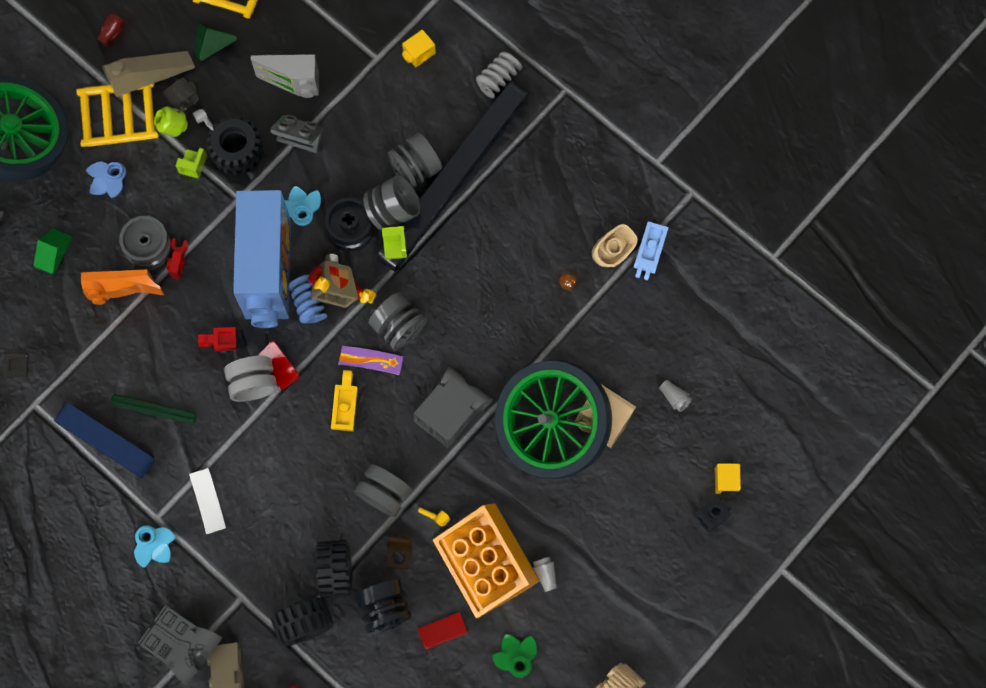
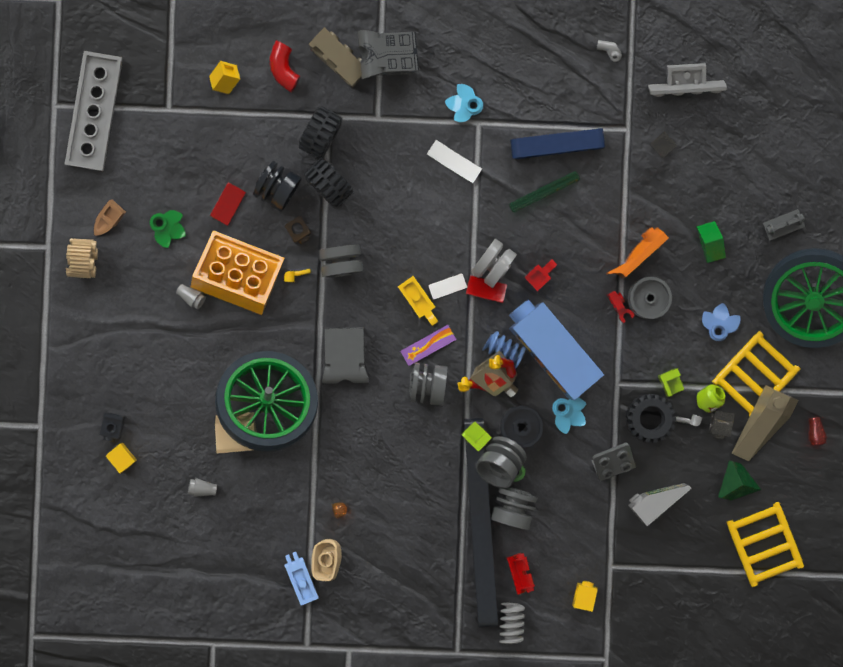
camera: 140 degrees right, 15 degrees up
(309, 397) = (447, 286): none -> white sticker
(452, 115) = (518, 566): none -> red hinge

